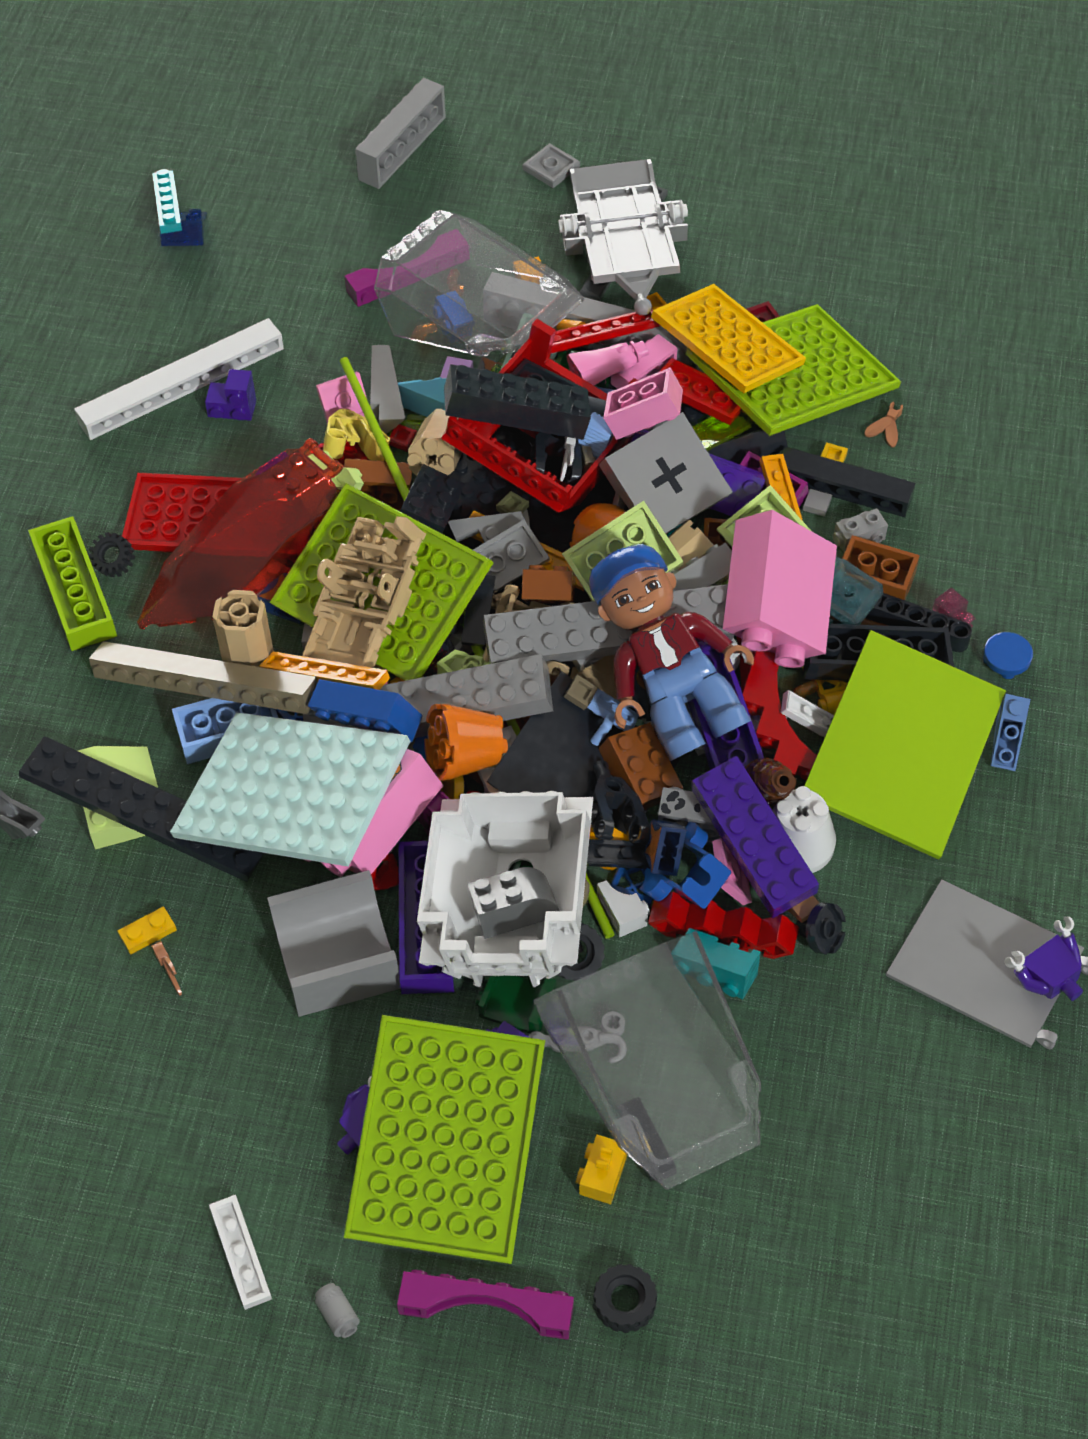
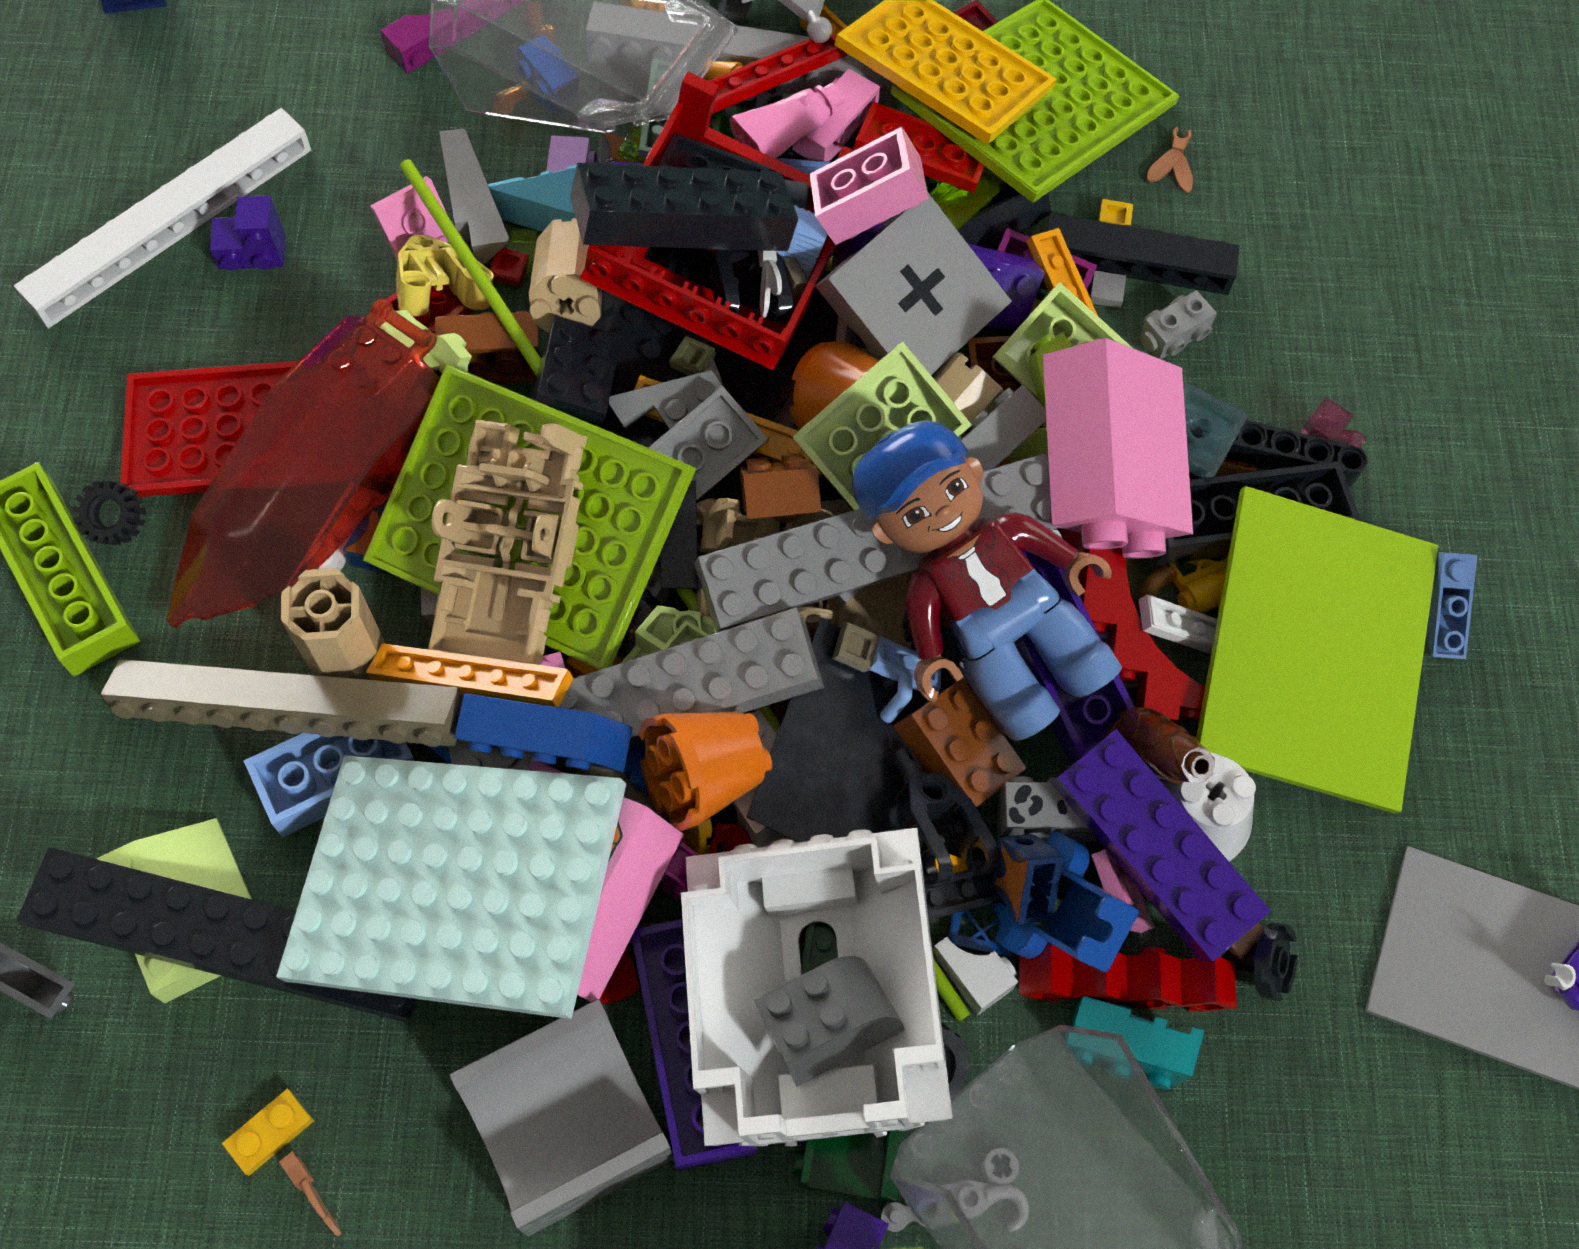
camera: 15 degrees left, 10 degrees up
(885, 564) = (1227, 373): dark orange brick -> none
(1008, 654) = (1416, 483): blue tile -> none

